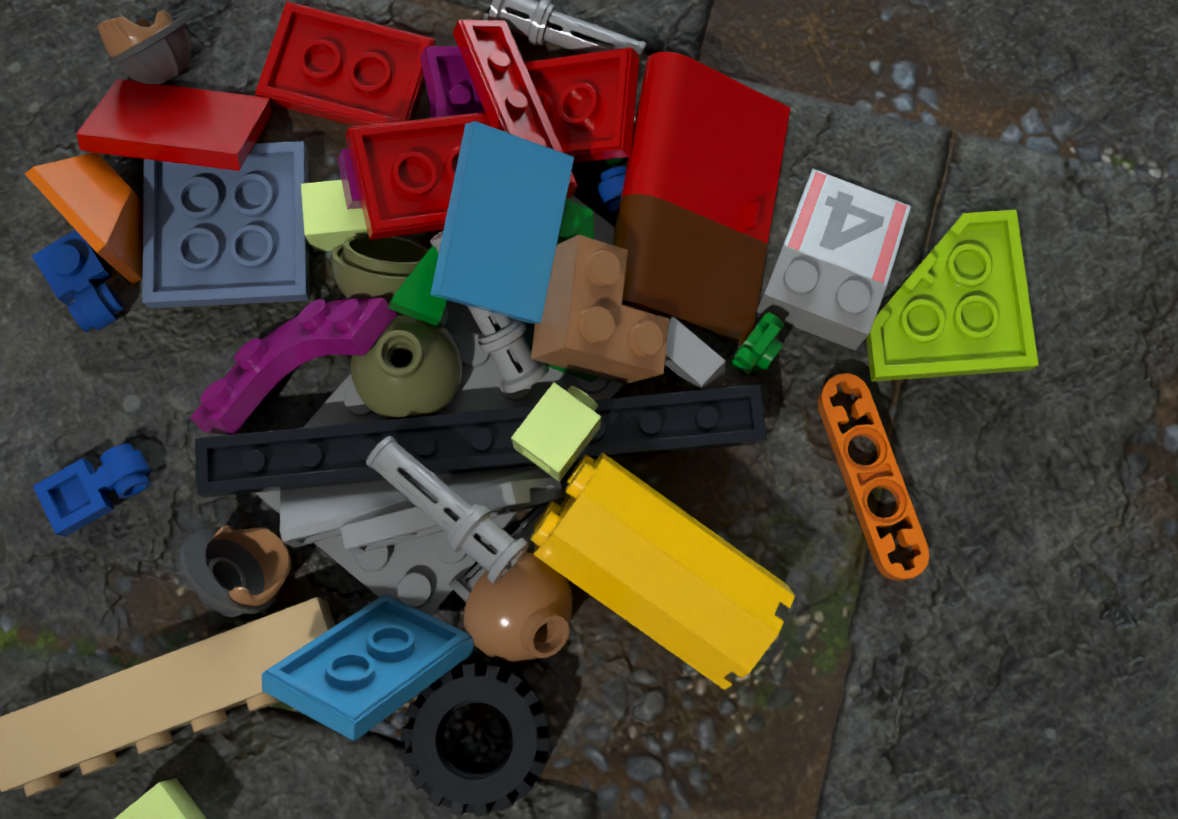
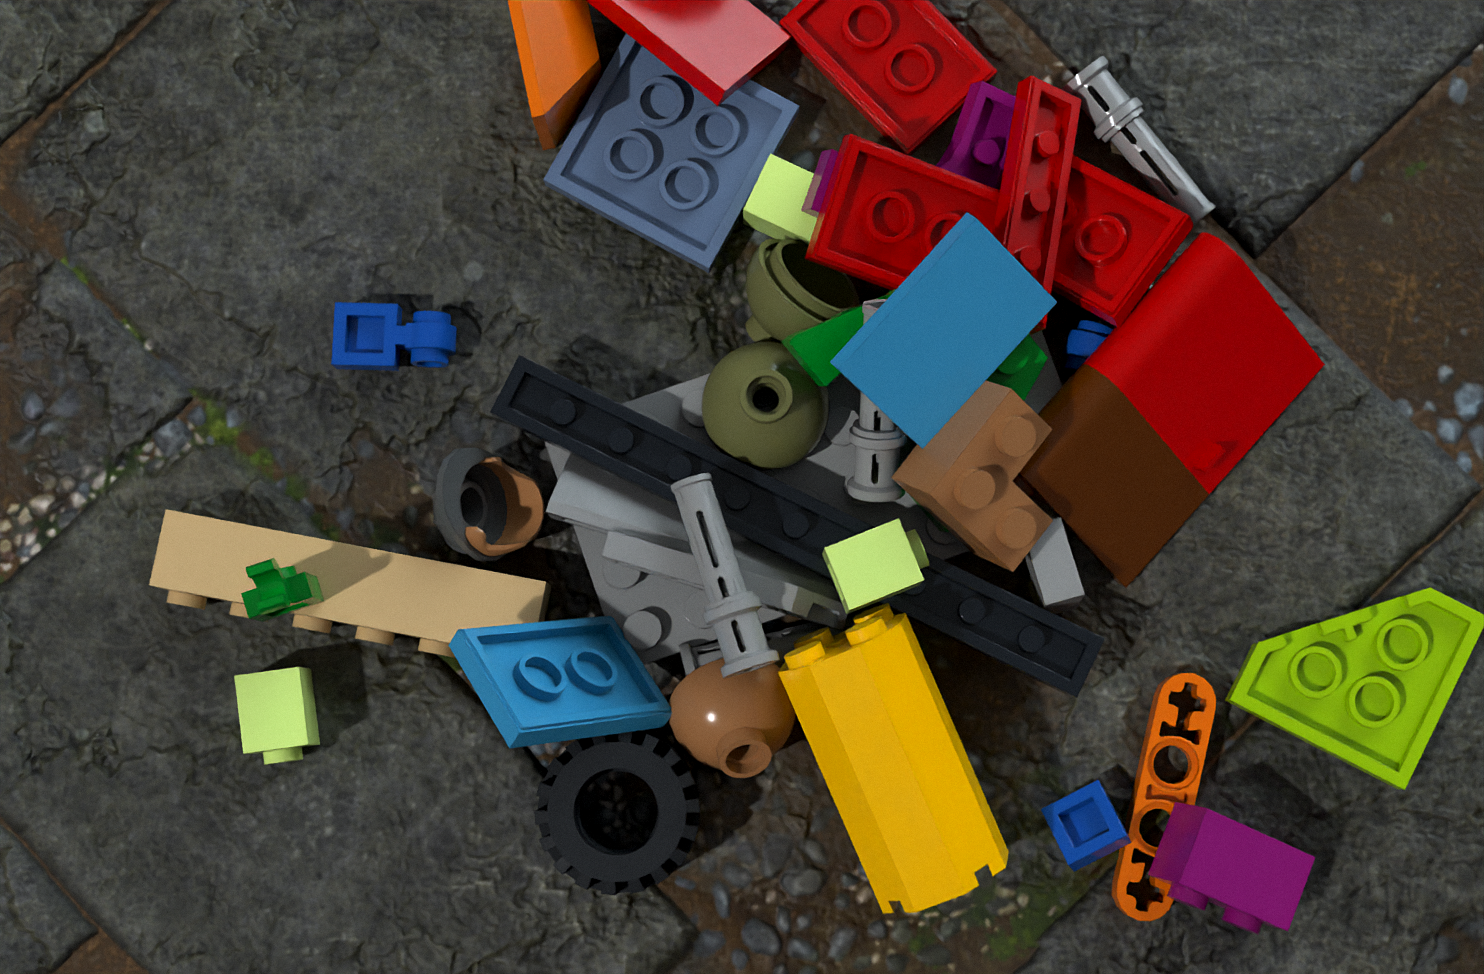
camera: 35 degrees right, 5 degrees up
(73, 273) = (493, 103): blue plate -> none
(104, 732) = (279, 590): none -> green plate
(318, 331) = (697, 315): magenta plate -> none
(759, 347) = (1131, 599): green piece -> none
(831, 532) = (1086, 825): none -> blue plate
(835, 260) = (1269, 553): light grey slope -> none
(953, 496) = (1232, 867): none -> magenta brick

